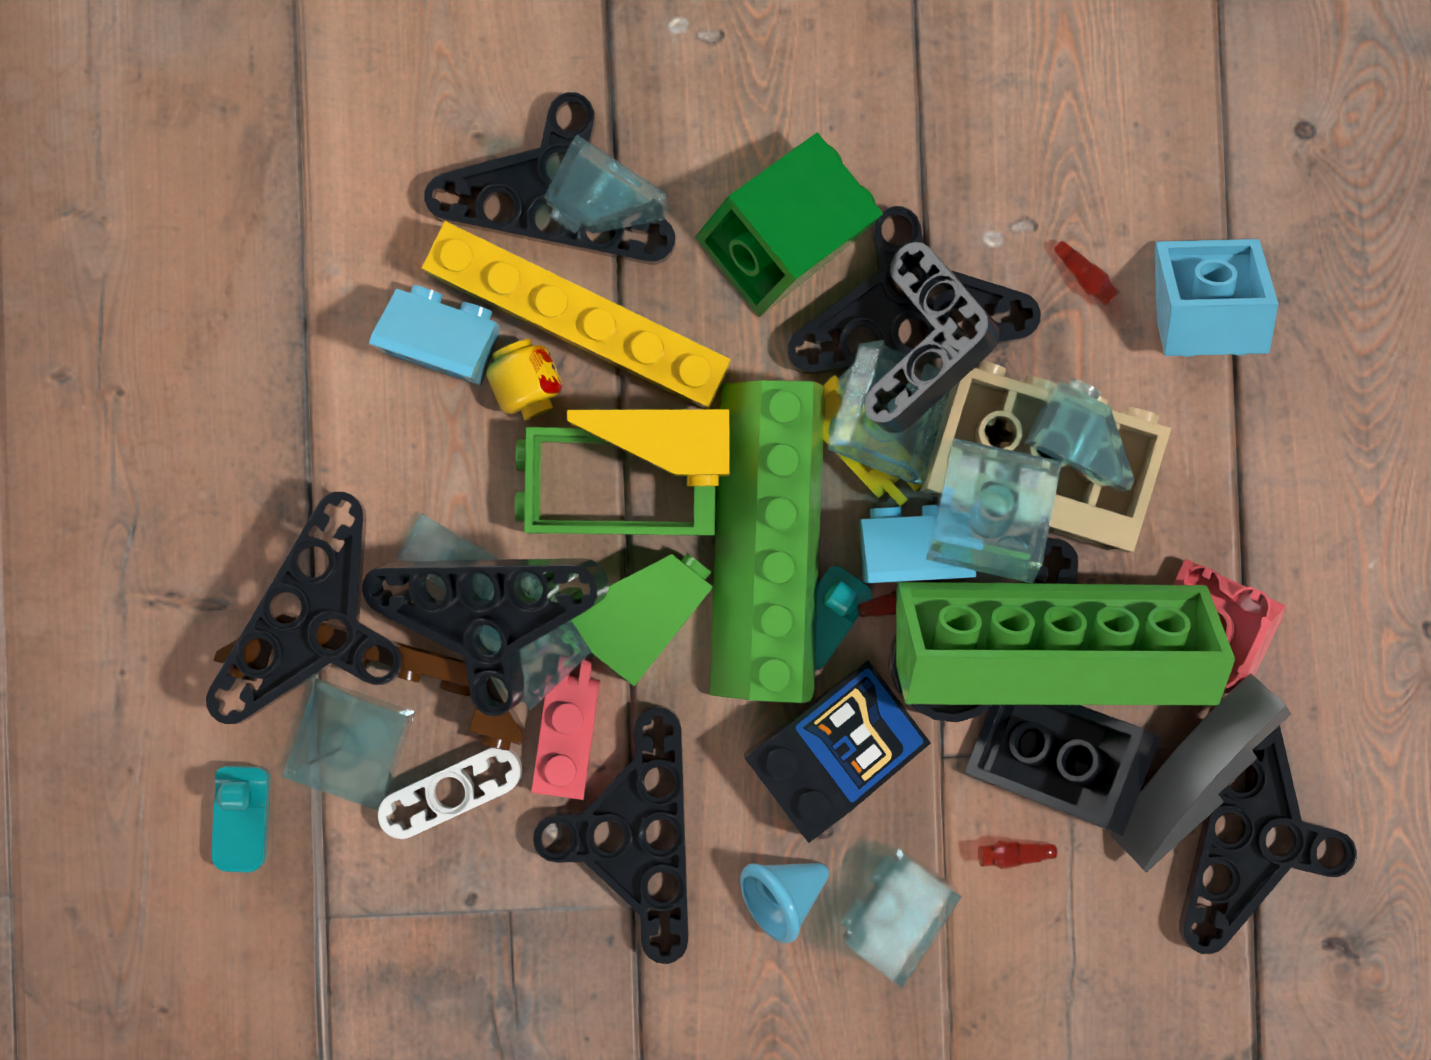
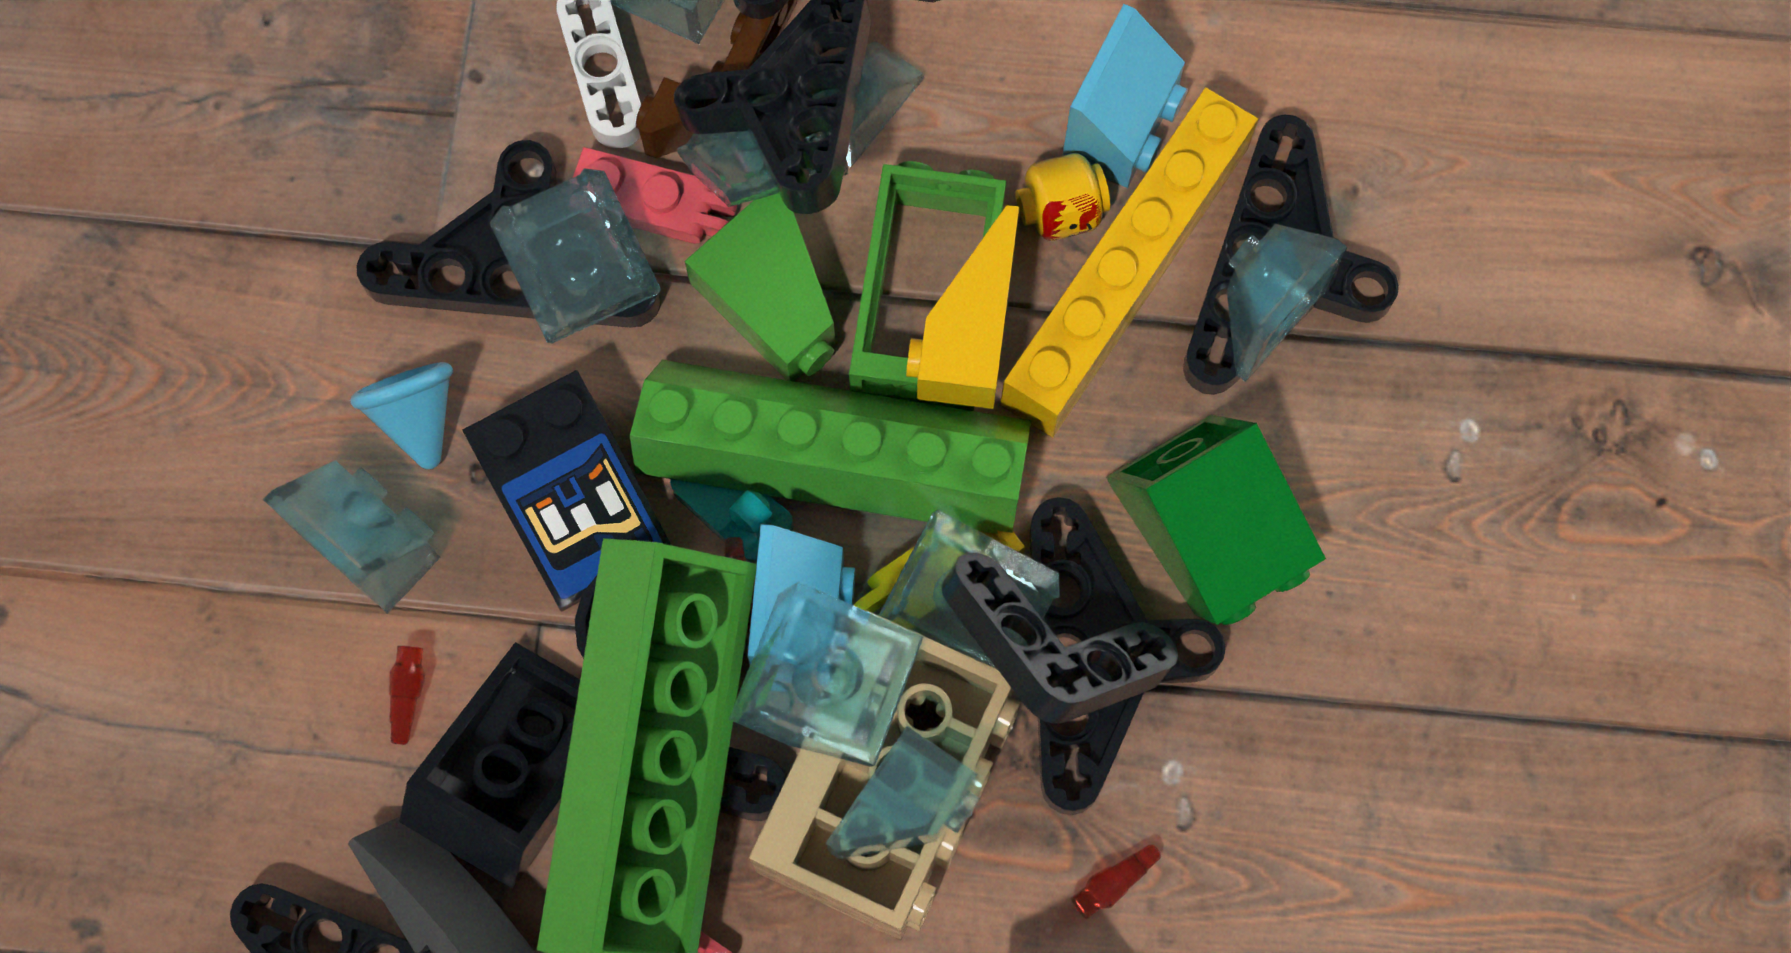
camera: 100 degrees right, 15 degrees down
(640, 778) = (574, 254): none -> clear light blue slope

